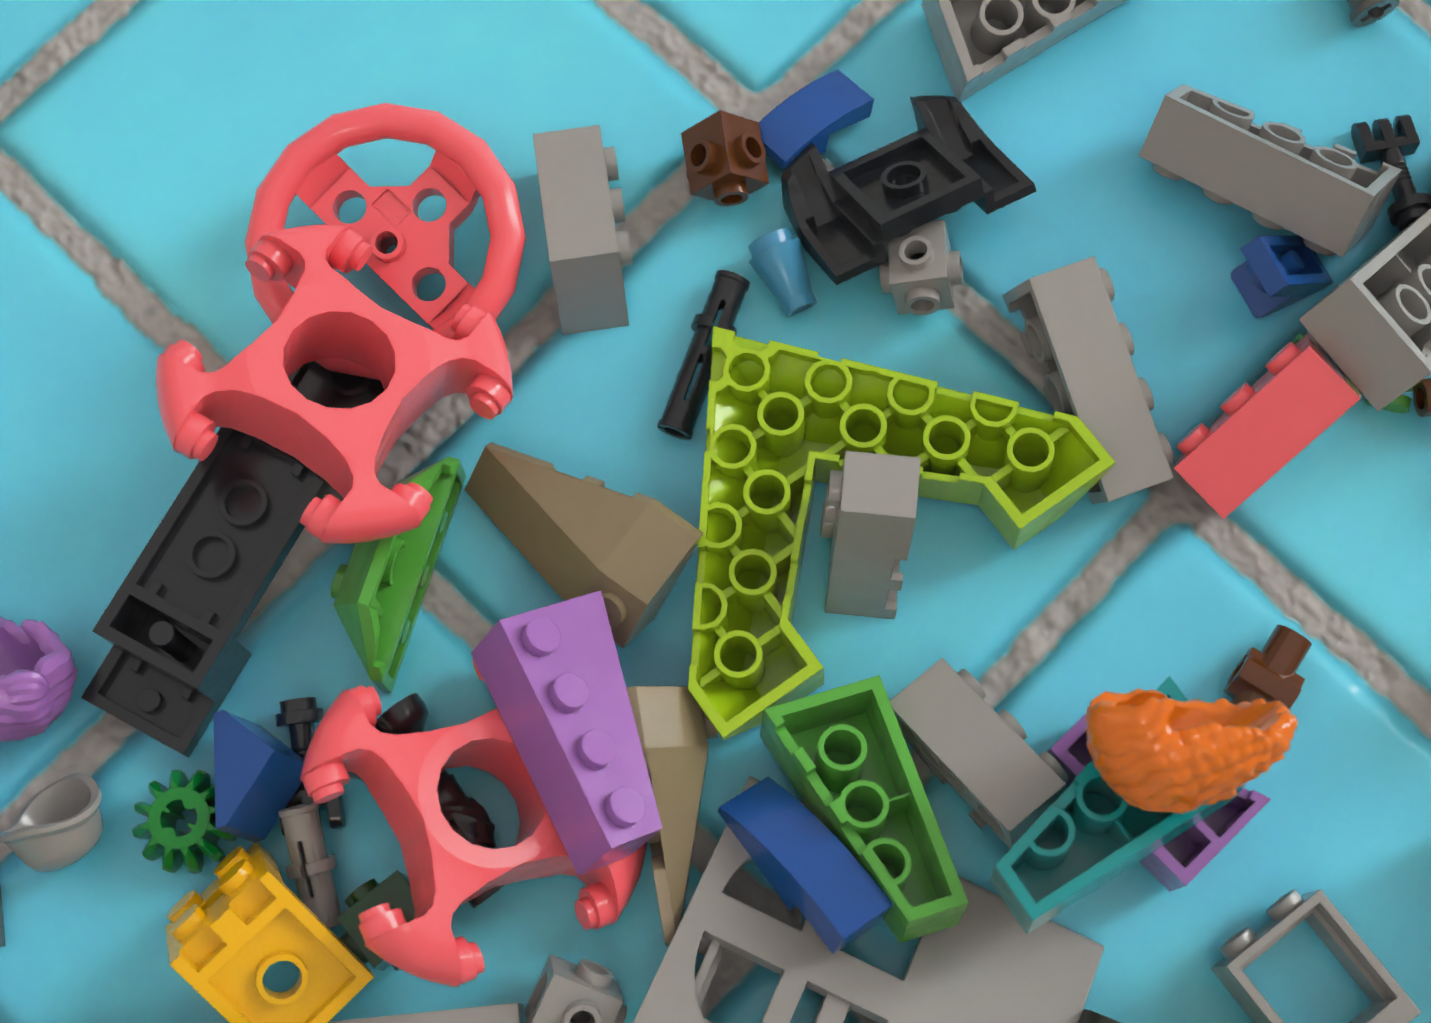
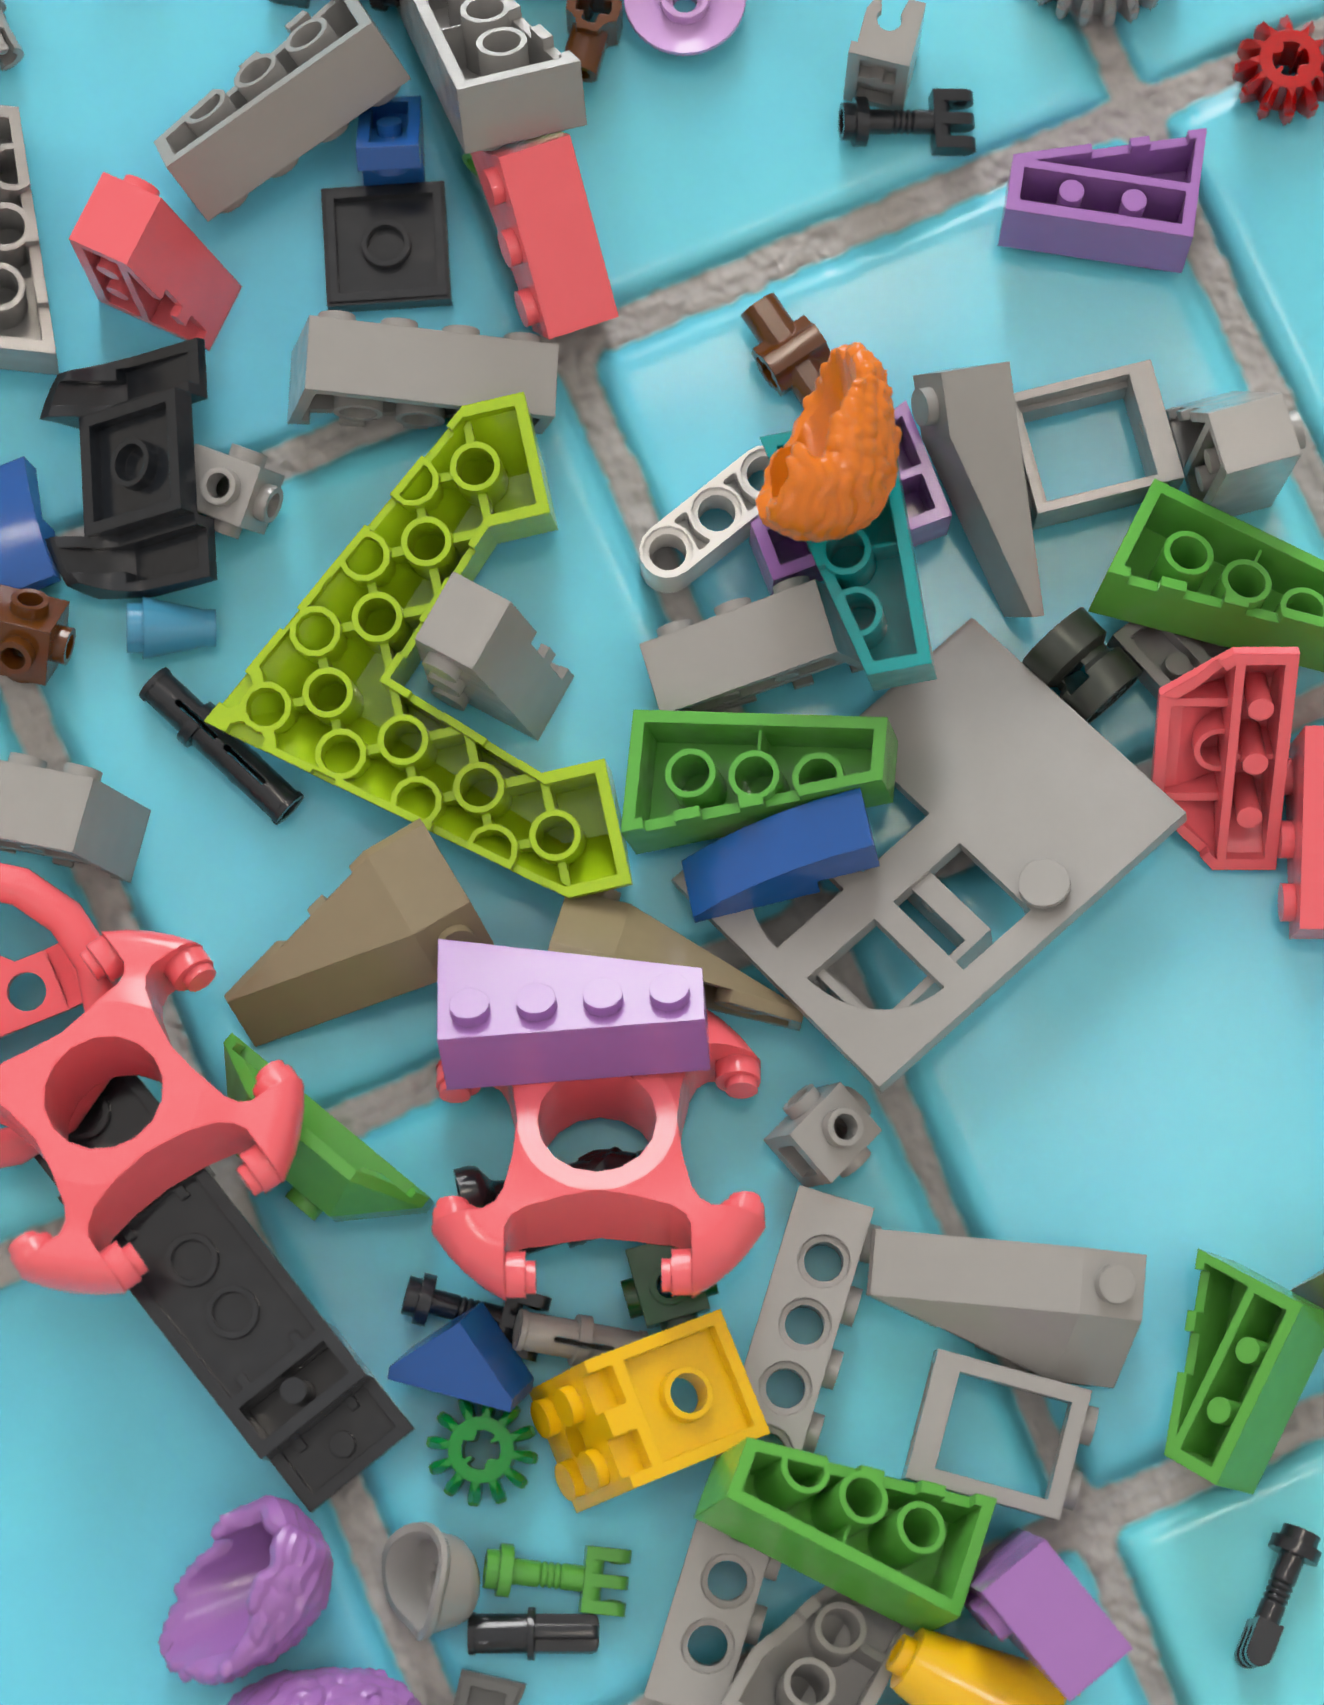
camera: 65 degrees left, 5 degrees up
(44, 932) = (533, 1633): none -> black axle
(110, 962) = (504, 1570): none -> bright green hinge
(1062, 655) = (697, 543): none -> white beam
(1081, 117) = (151, 261): none -> coral wedge
(1190, 309) = (386, 246): none -> black tile
(1255, 884) = (976, 449): none -> light grey wedge

